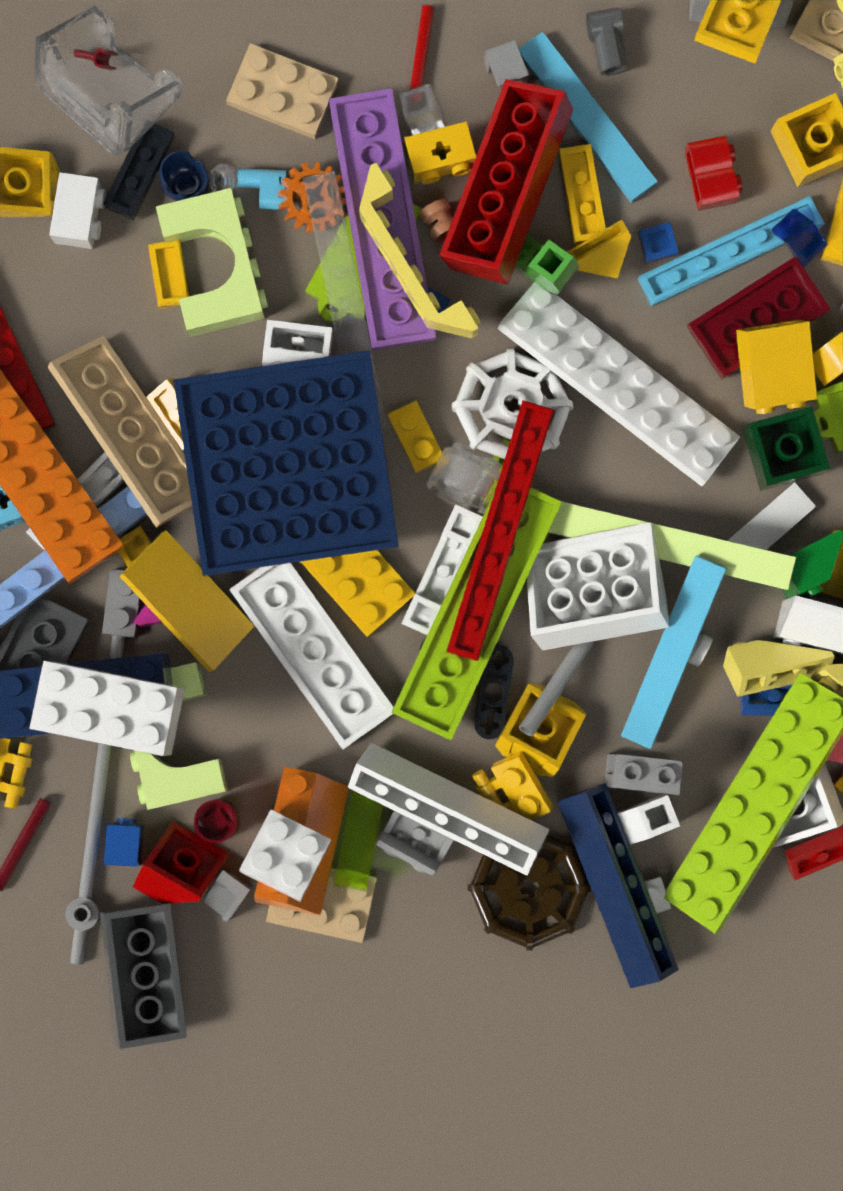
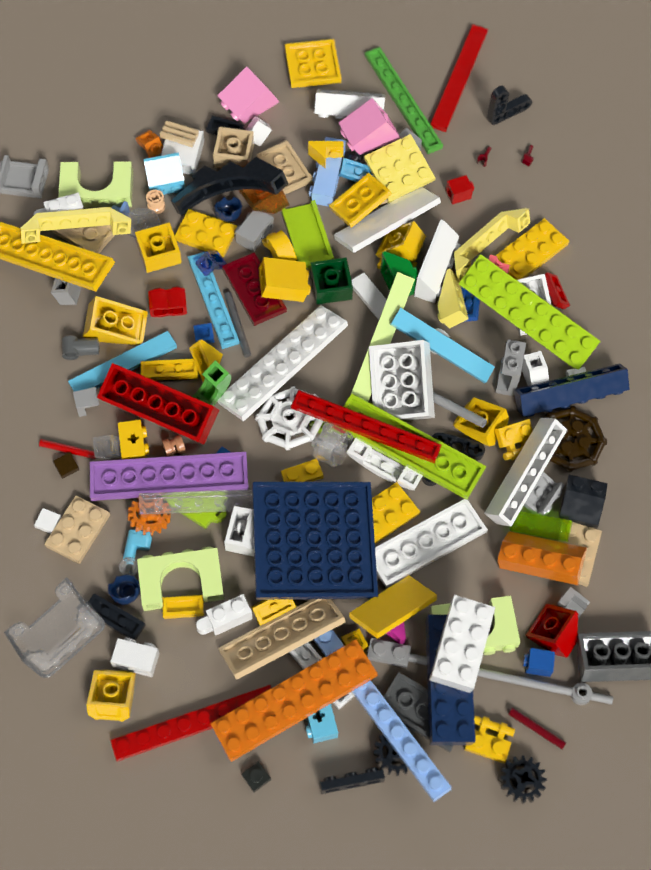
camera: 80 degrees left, 20 degrees down
(100, 57) = (37, 634): dark red hand -> none
(153, 339) = (225, 616): none -> white brick
(216, 821) = (528, 604): dark red wheel -> none
(285, 855) = (553, 555): white plate -> none
(291, 41) = (47, 521): none -> white tile
(391, 54) = (66, 465): none -> dark brown tile
(408, 909) = (583, 500): none -> black slope
(453, 320) = (151, 469): light yellow slope -> none
(660, 91) = (114, 322): none -> yellow slope
(686, 298) = (237, 323): none -> flat silver bar

